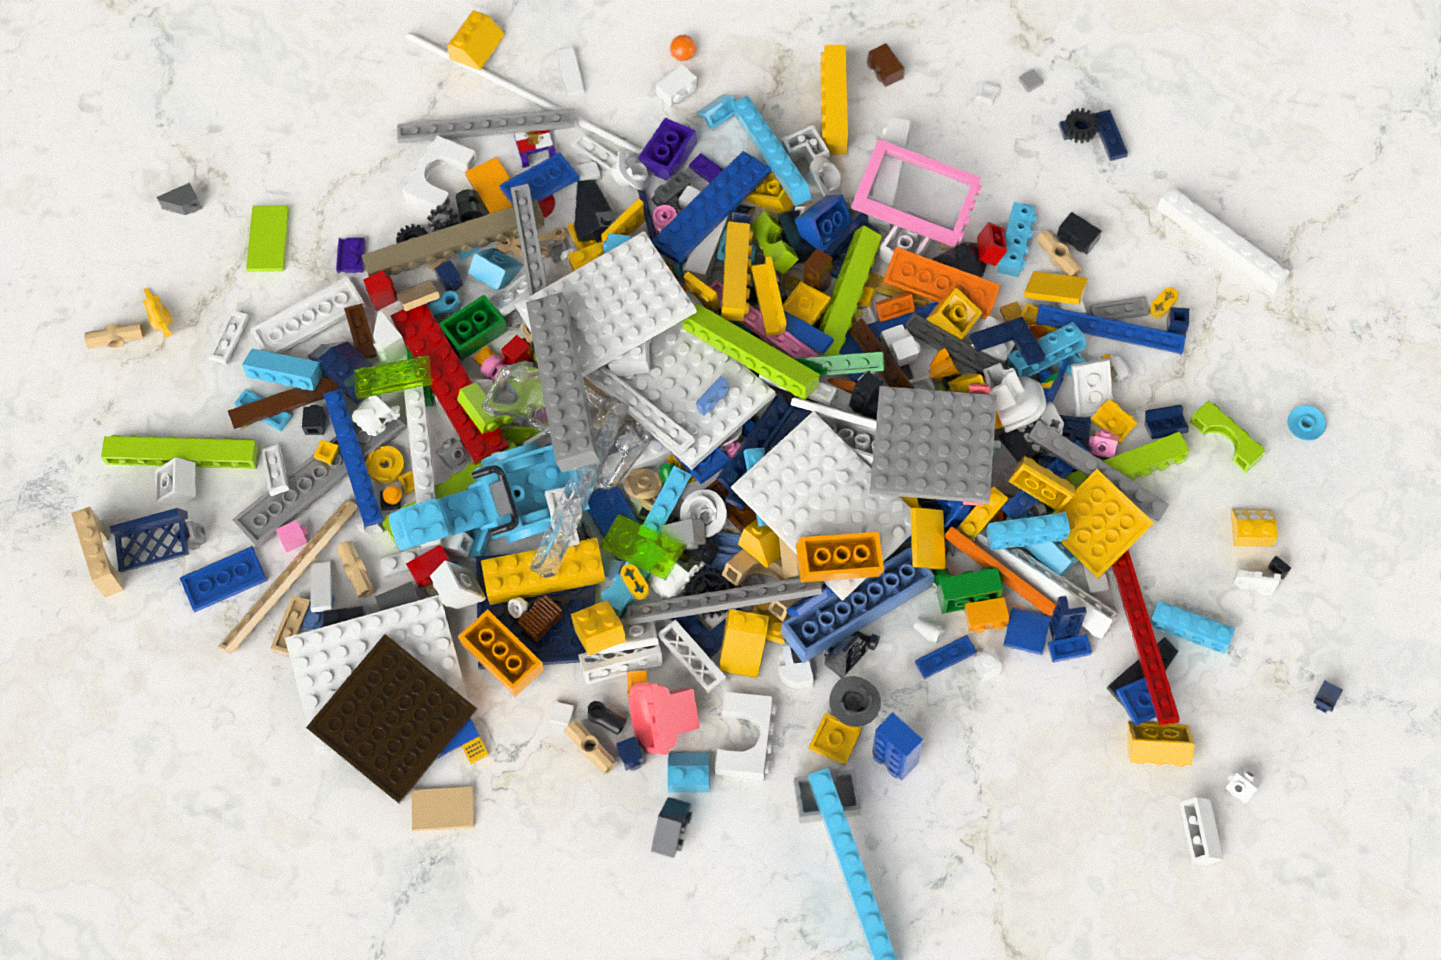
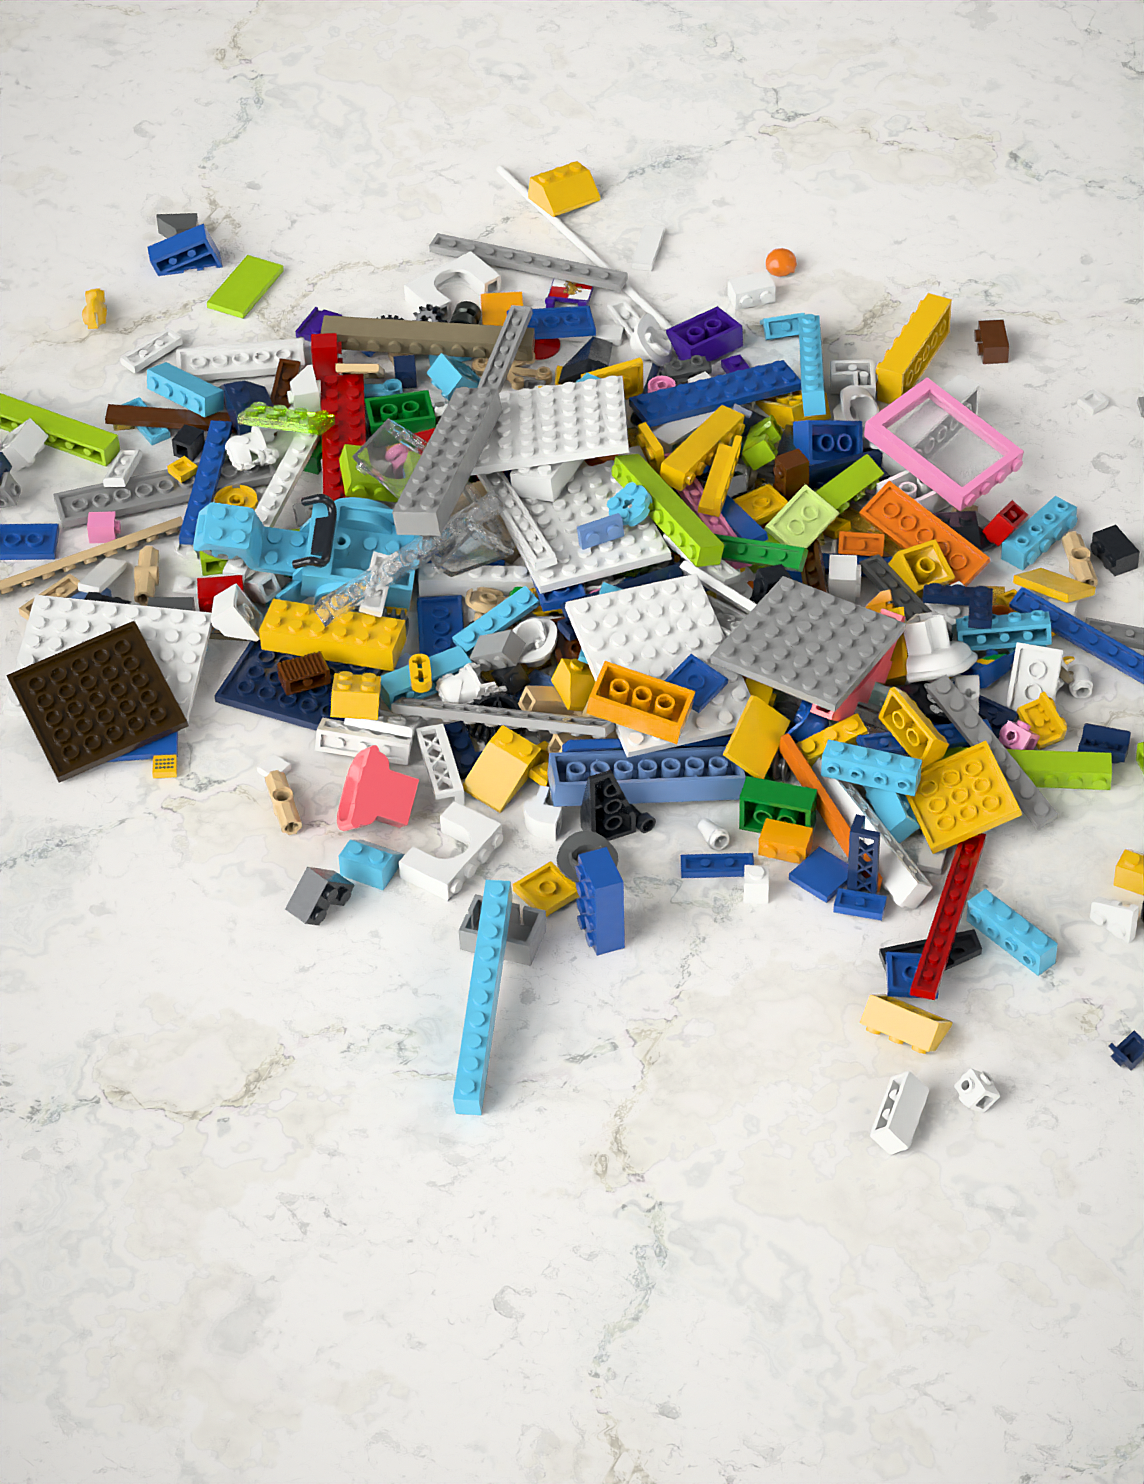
camera: 25 degrees right, 20 degrees down
(114, 335) = (41, 313): tan piece -> none
(200, 225) = (185, 251): none -> blue wedge
(442, 809) = (99, 802): tan tile -> none
(501, 653) = (242, 684): light orange brick -> none
(517, 607) = (286, 652): white tile -> none
(607, 719) = (315, 784): black piece -> none
(630, 754) = (320, 822): dark blue brick -> none
(642, 547) = (447, 645): clear neon green tile -> none
(712, 357) = (634, 495): none -> medium azure plate
(847, 310) = (802, 519): none -> yellowish green tile
(863, 513) = (699, 678): none -> blue tile

